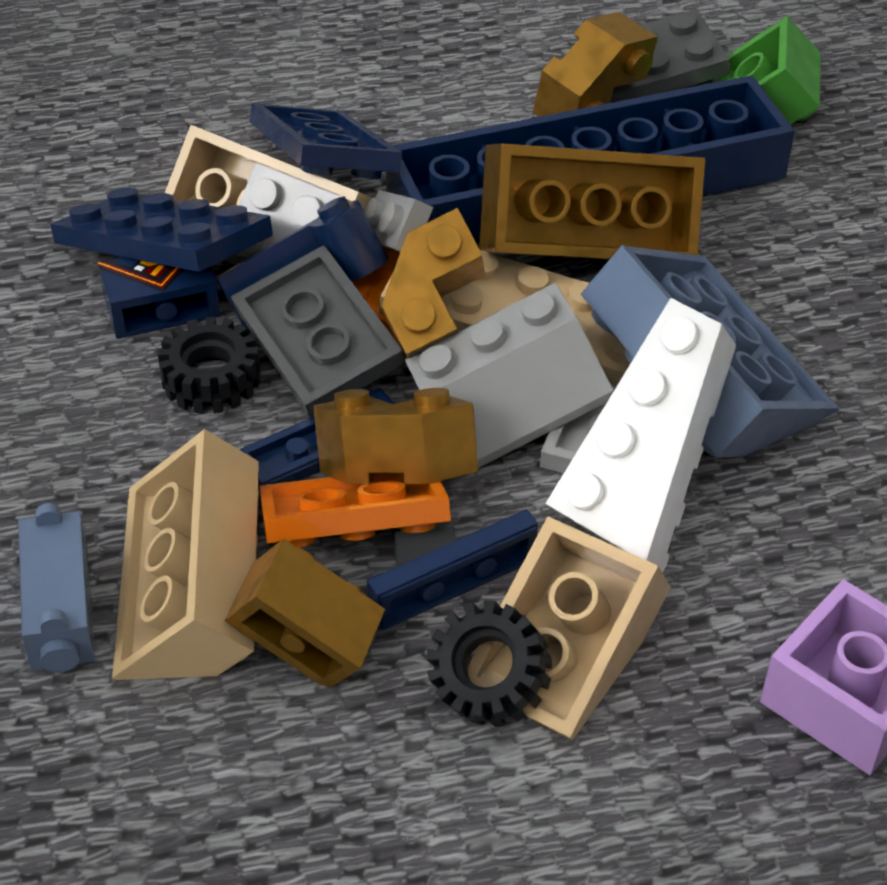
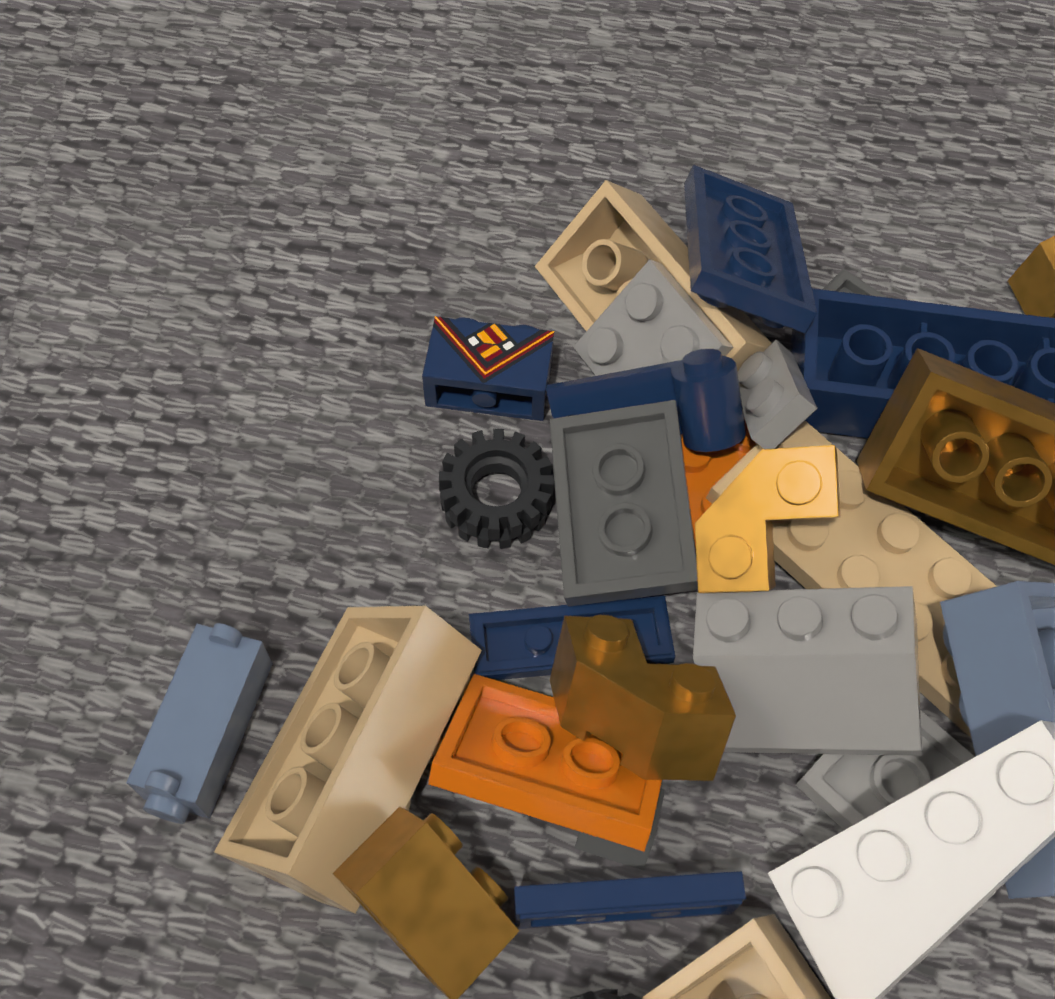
camera: 25 degrees right, 15 degrees up
(162, 229) = (522, 303): dark blue plate -> none

